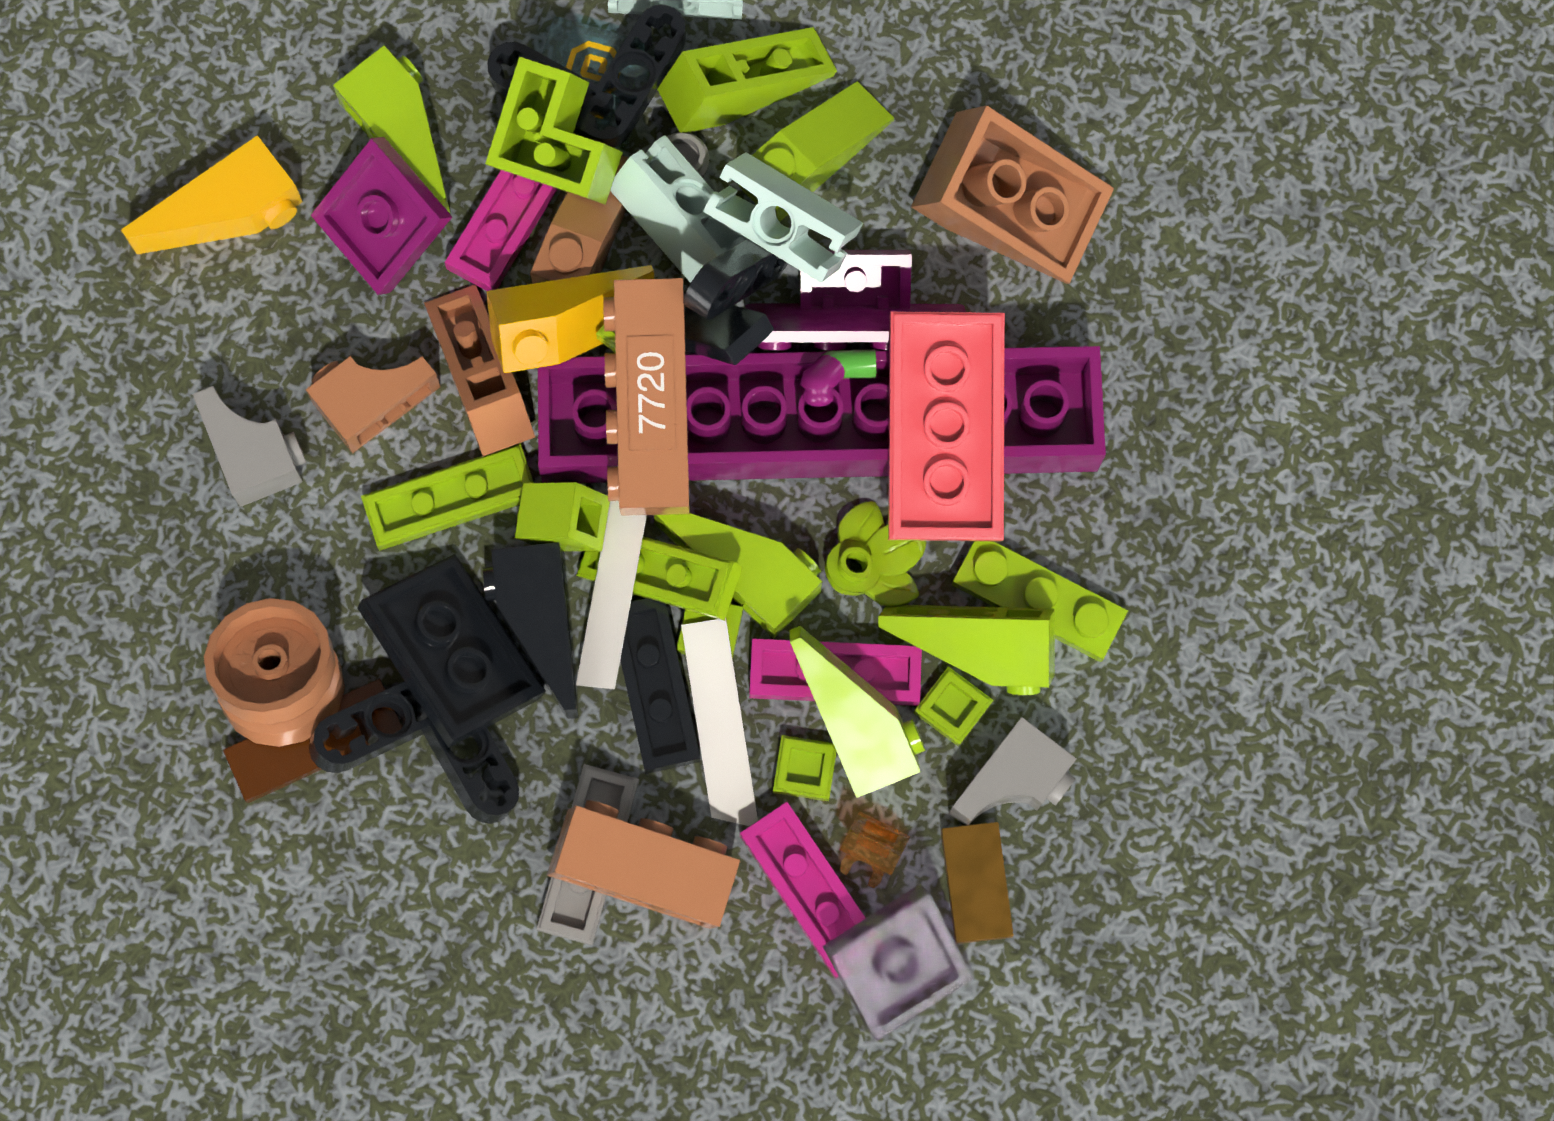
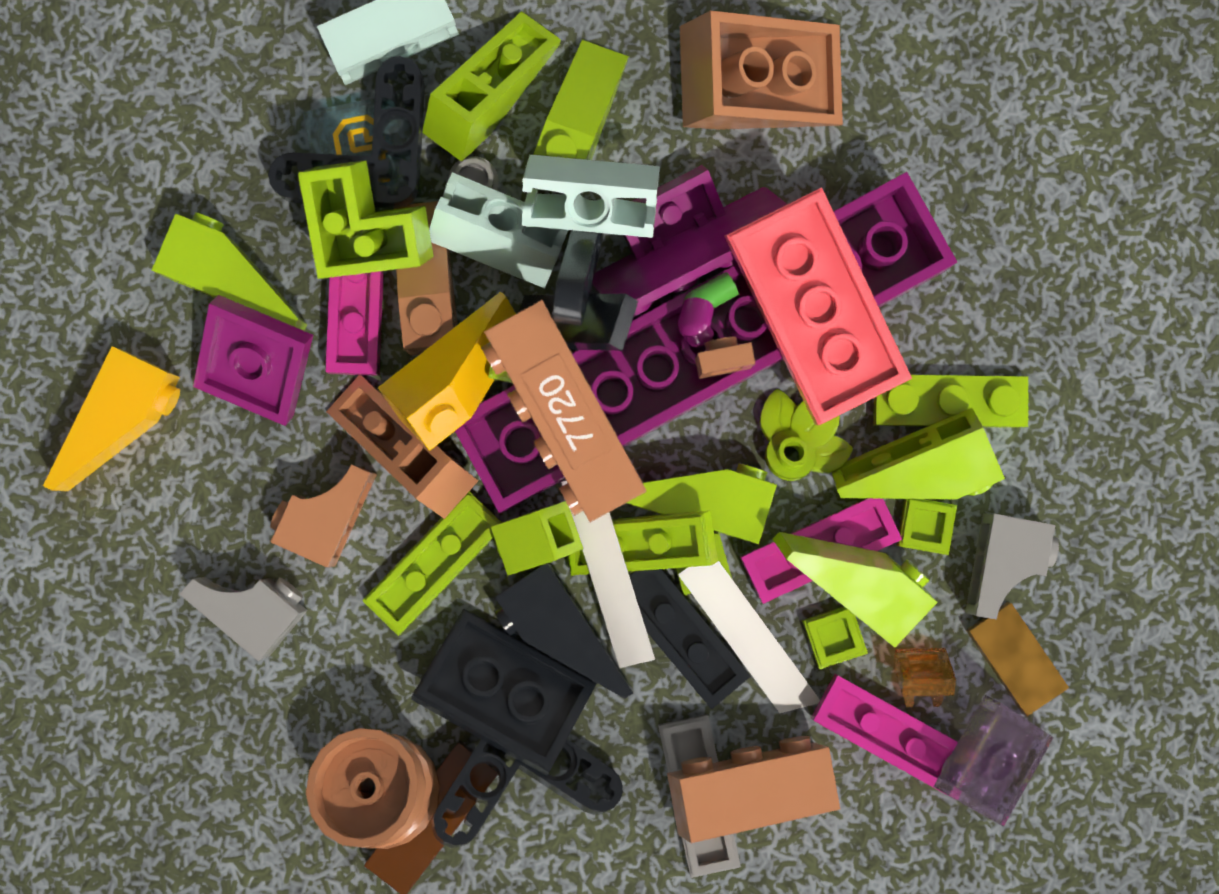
camera: 25 degrees left, 10 degrees up
(829, 426) = (724, 357): none -> nougat plate

